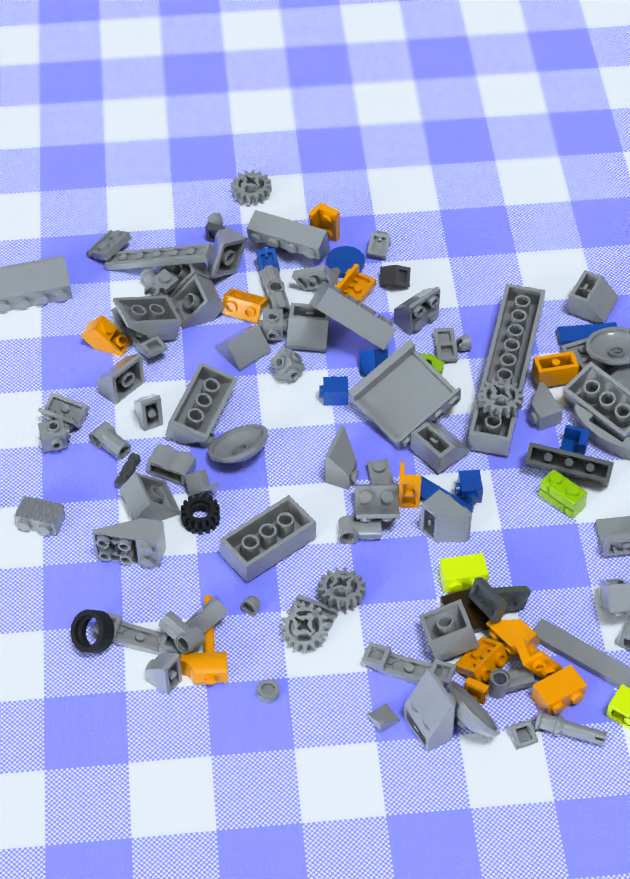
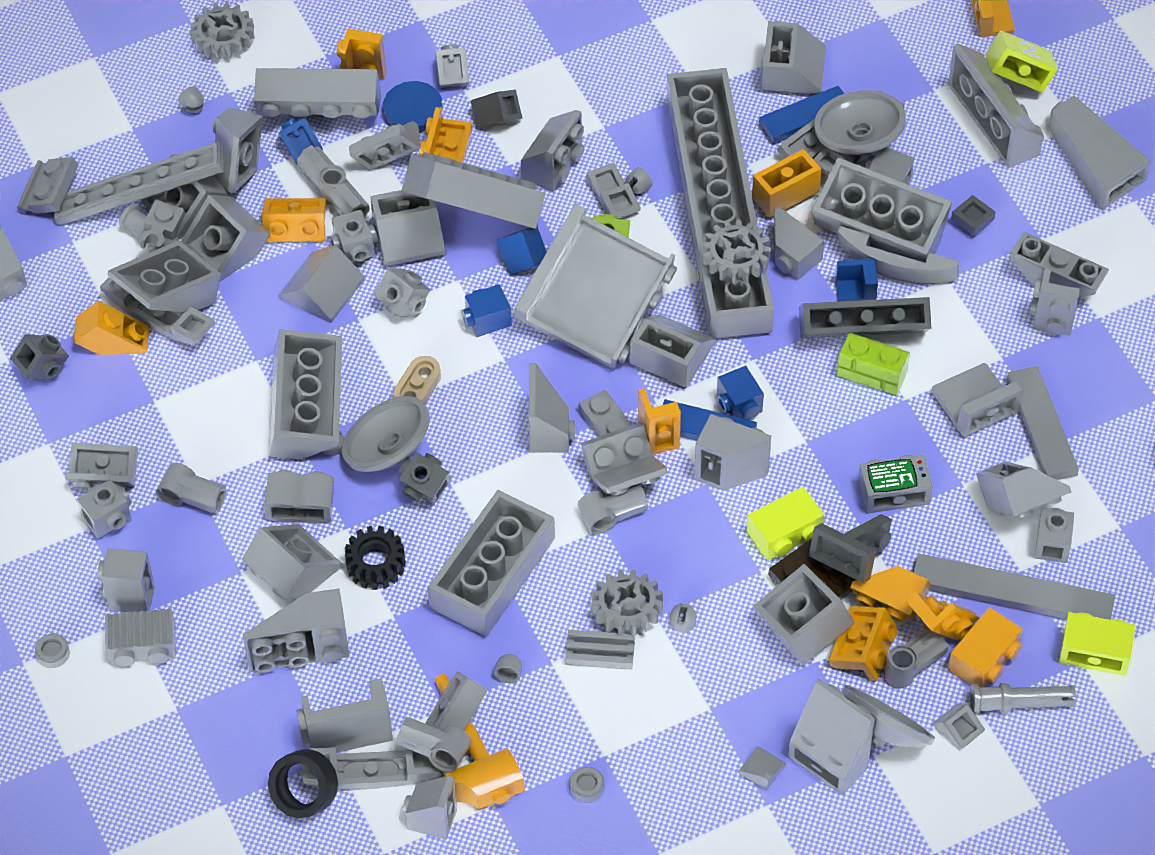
camera: 20 degrees left, 5 degrees up
(45, 479) = (126, 580): none -> light grey brick
(56, 338) = (39, 357): none -> dark grey brick
(122, 378) = (166, 388): light grey slope -> none
(127, 469) = (237, 527): dark grey axle -> none
(135, 605) = (349, 724): none -> light grey panel
(149, 411) = (230, 426): light grey slope -> none
(198, 482) = (353, 513): light grey panel -> none
(211, 230) = (201, 119): dark grey plate -> none
(250, 476) = (431, 486): none -> dark grey brick
(272, 421) = (416, 386): none -> tan plate
(298, 633) = (607, 661): light grey gear -> none
(377, 612) = (690, 618): none -> light grey hinge
(404, 668) = (764, 687): light grey slope -> none
(477, 689) = (876, 684): light orange tile -> none
(545, 570) = (895, 483): none -> brick

